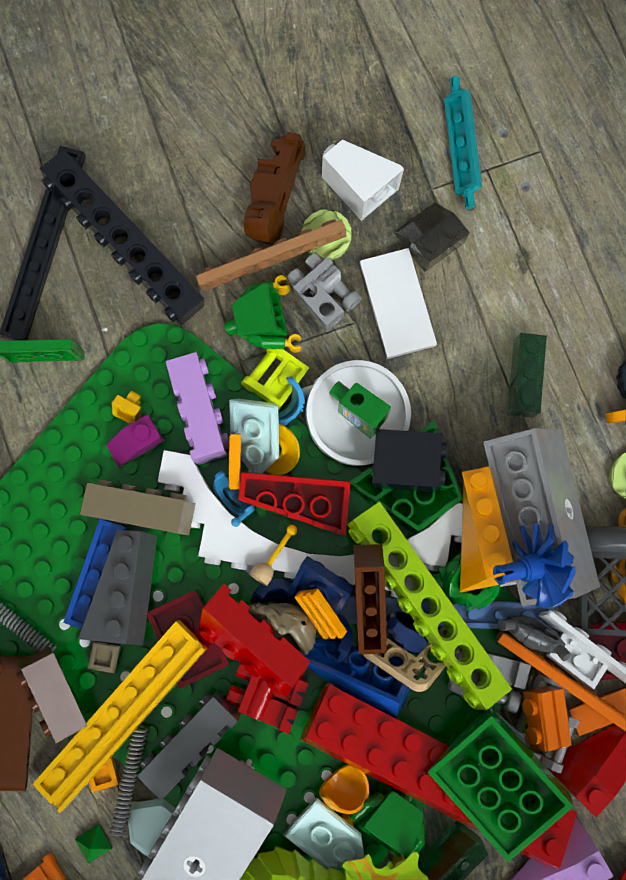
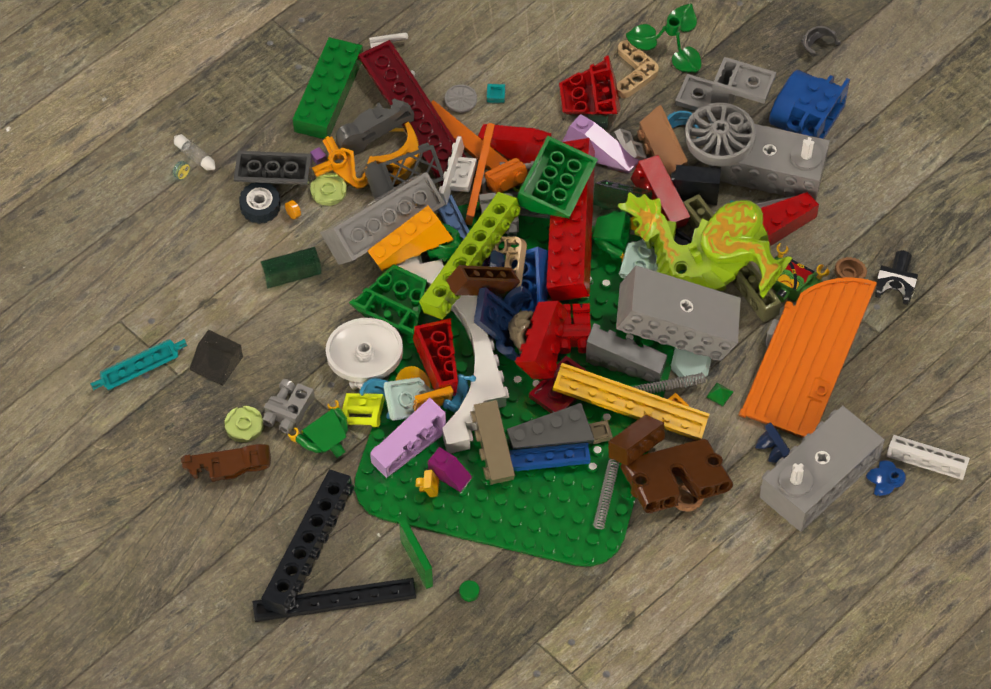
camera: 110 degrees left, 25 degrees down
(263, 258) = (281, 447): medium nougat plate -> none
(263, 571) = (497, 352): hinge -> none
(320, 613) = (508, 312): light orange tile -> none
(345, 790) = (606, 264): light orange helmet -> none
(360, 177) = (198, 409): white slope -> none
(370, 412) = (363, 337): green torso -> none
(397, 303) = (274, 362): white tile -> none
(408, 460) = (384, 301): black brick -> none
(535, 635) = (459, 197): dark grey piece -> none
(543, 568) = (420, 187): blue piece -> none

